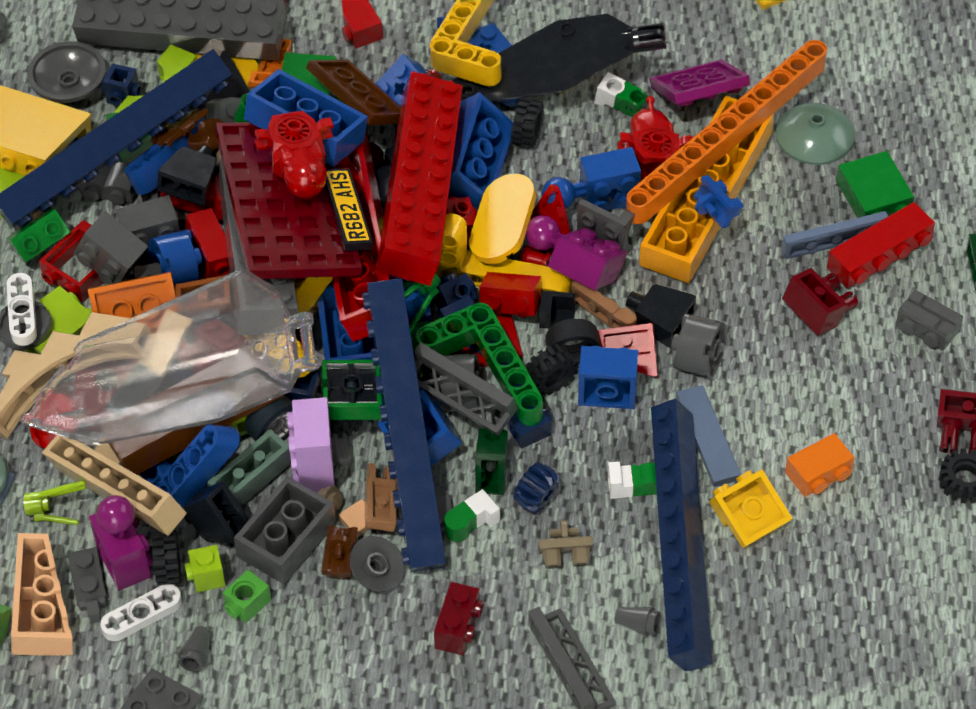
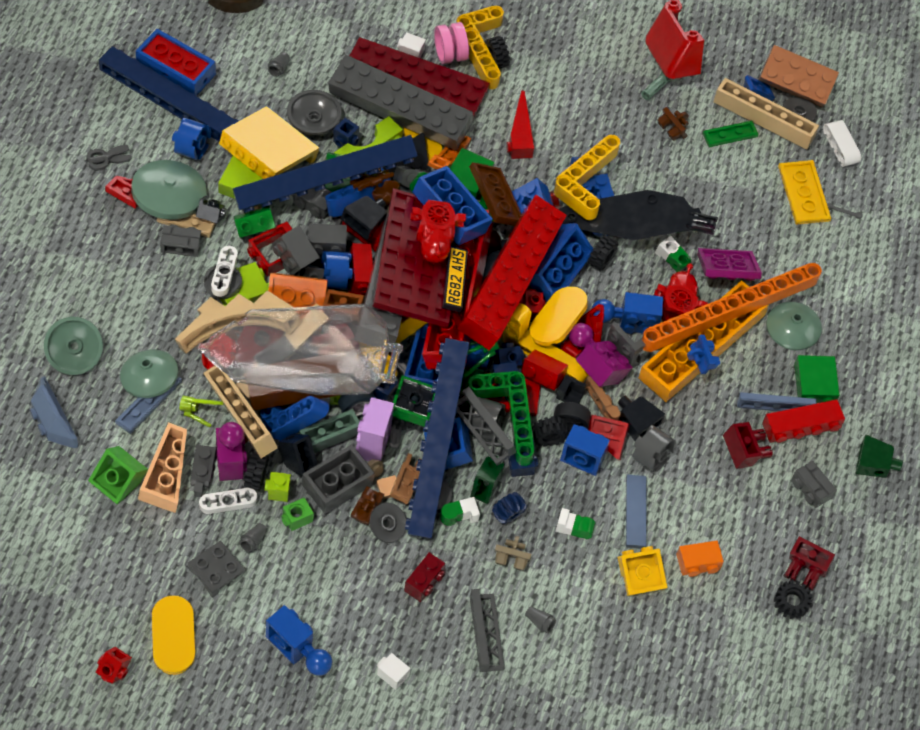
camera: 10 degrees right, 5 degrees up
(681, 536) = (589, 573): dark blue brick -> none

